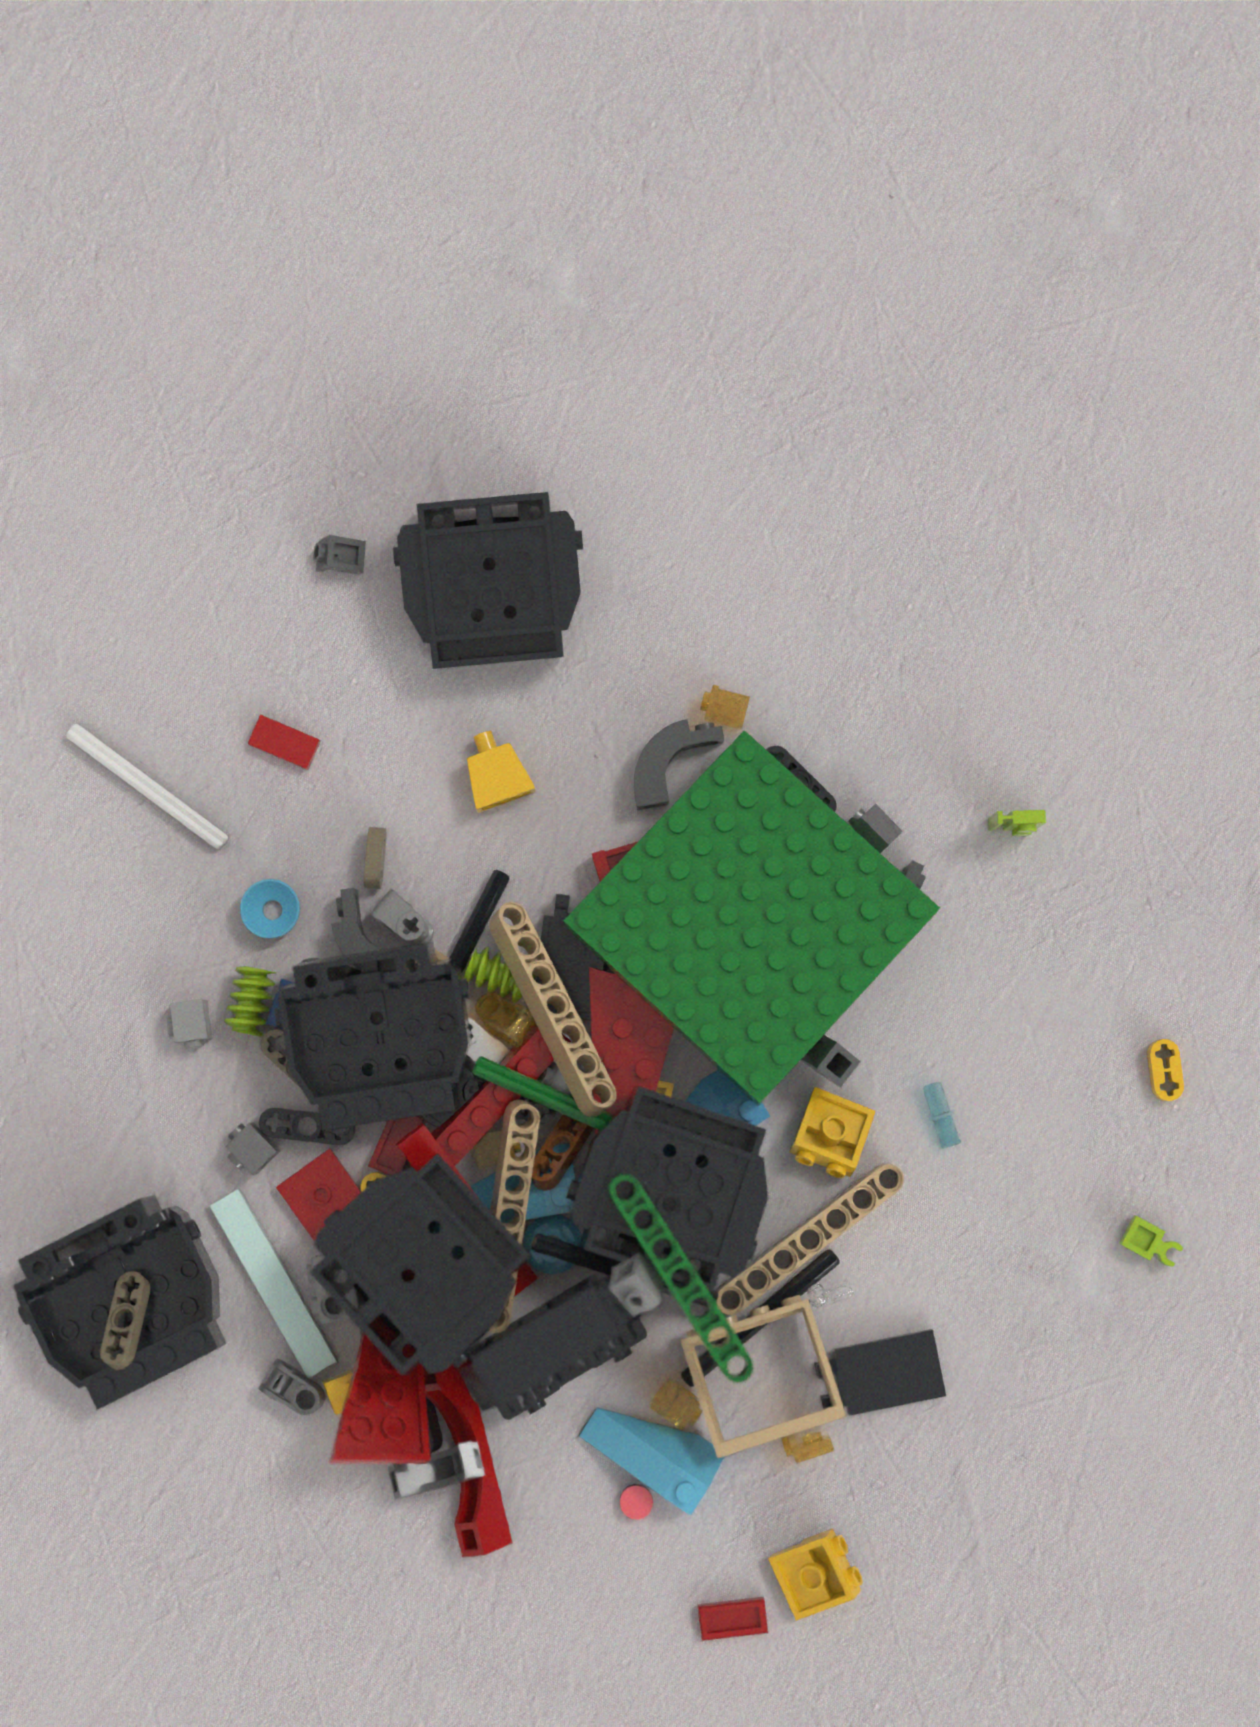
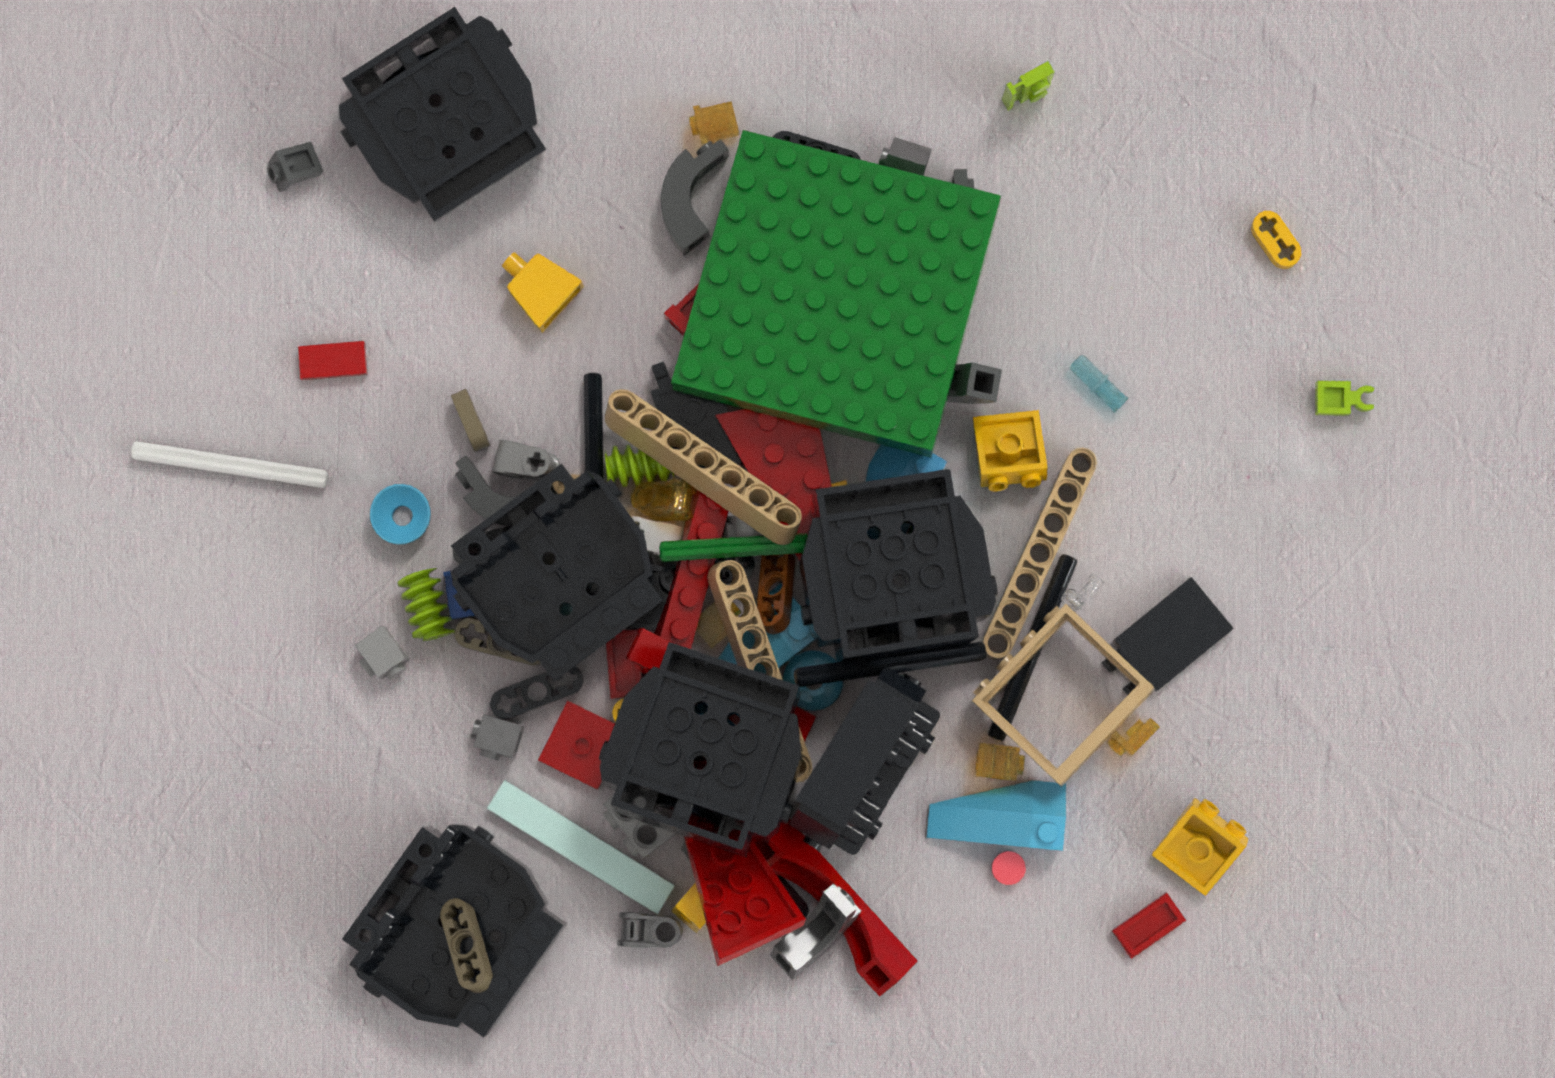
camera: 25 degrees left, 0 degrees up
(636, 1285) = (907, 664): light grey brick -> none
(692, 1289) = (959, 636): green beam -> none

